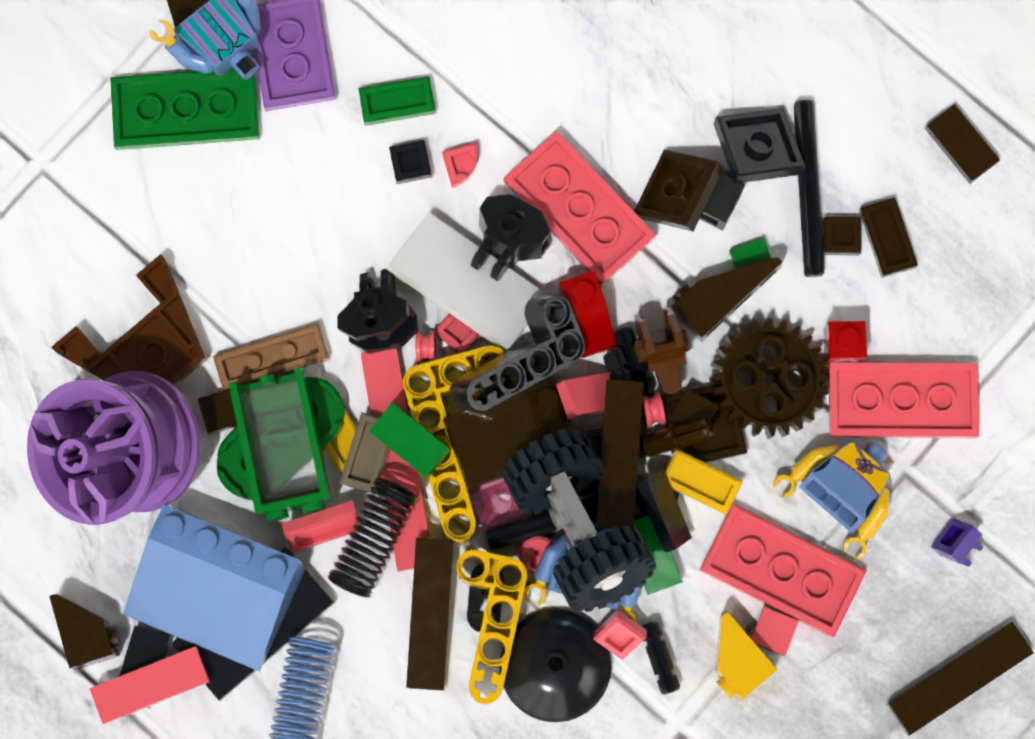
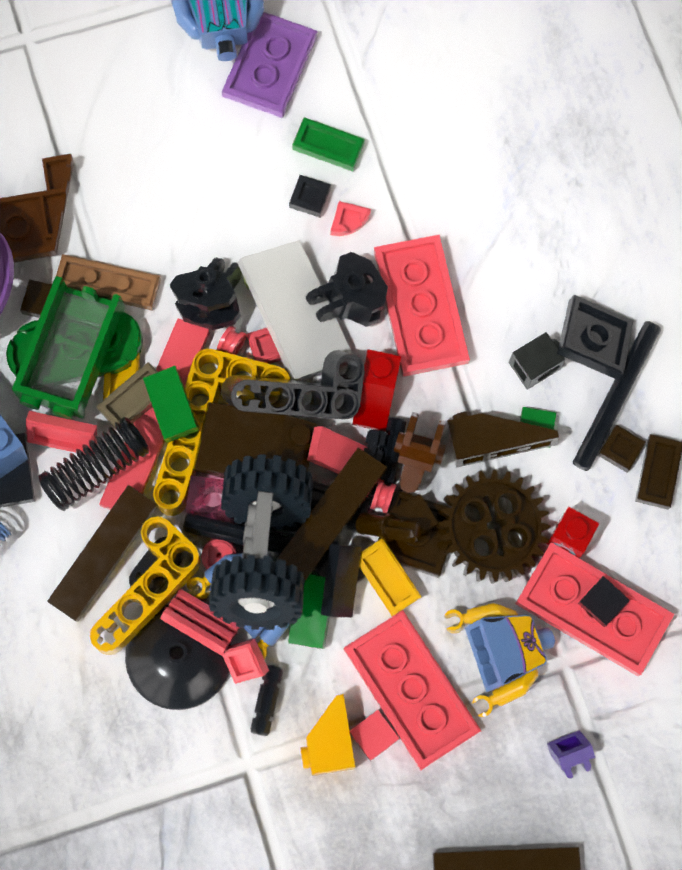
camera: 25 degrees right, 5 degrees down
(183, 109) = (160, 59): green tile -> none
(559, 618) = (202, 619): none -> coral tile
(678, 190) = (509, 334): dark brown tile -> none
(909, 389) = (603, 601): none -> black tile

